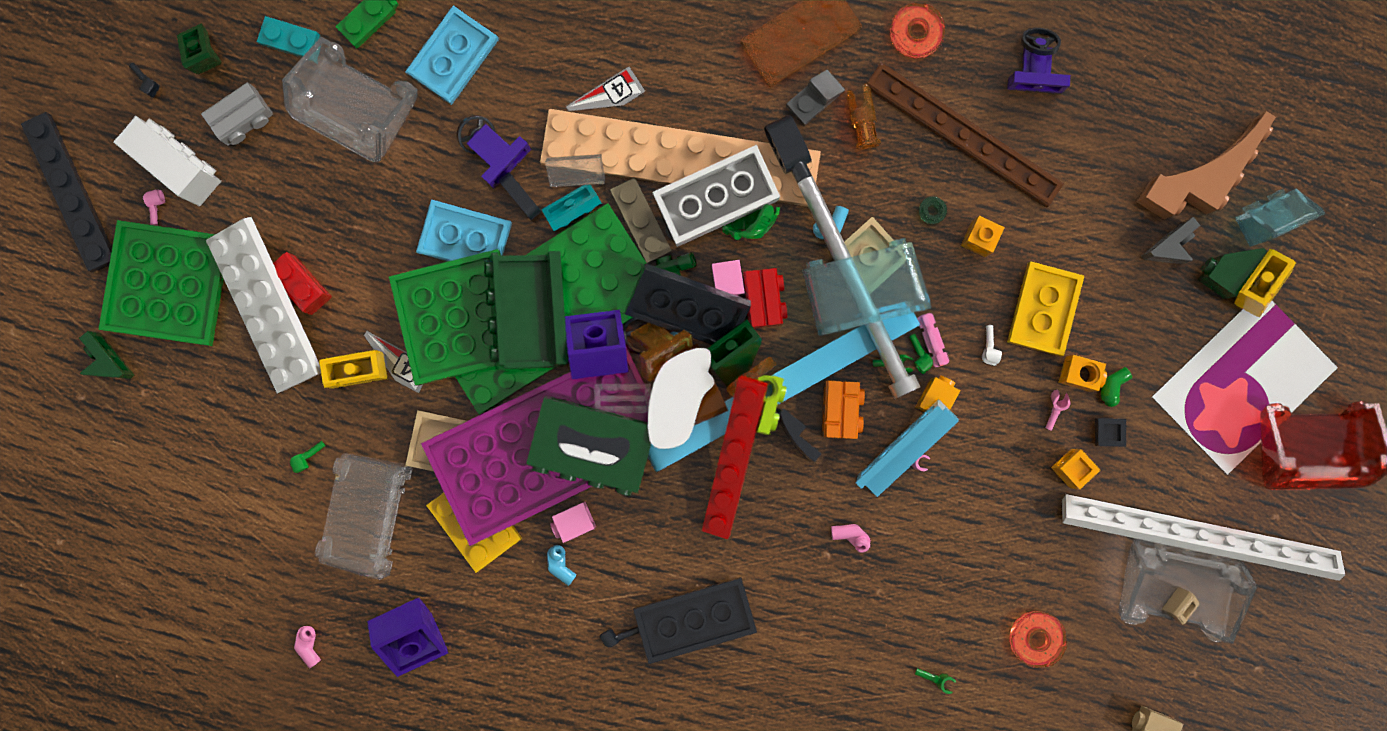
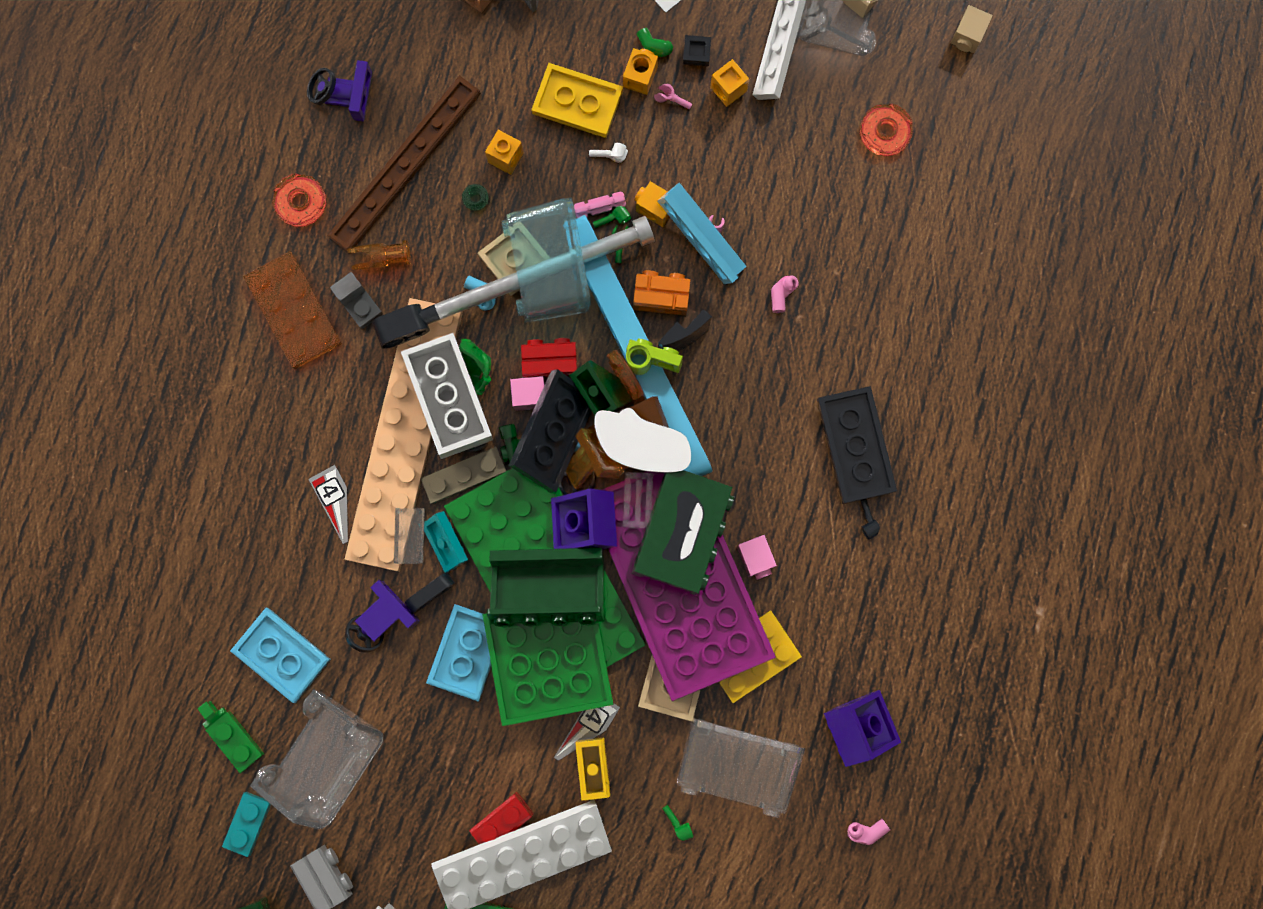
camera: 85 degrees left, 5 degrees down
(557, 565) = (799, 576): medium azure arm -> none
(734, 456) = (701, 393): red plate -> none
(938, 680) = (921, 221): green hand -> none

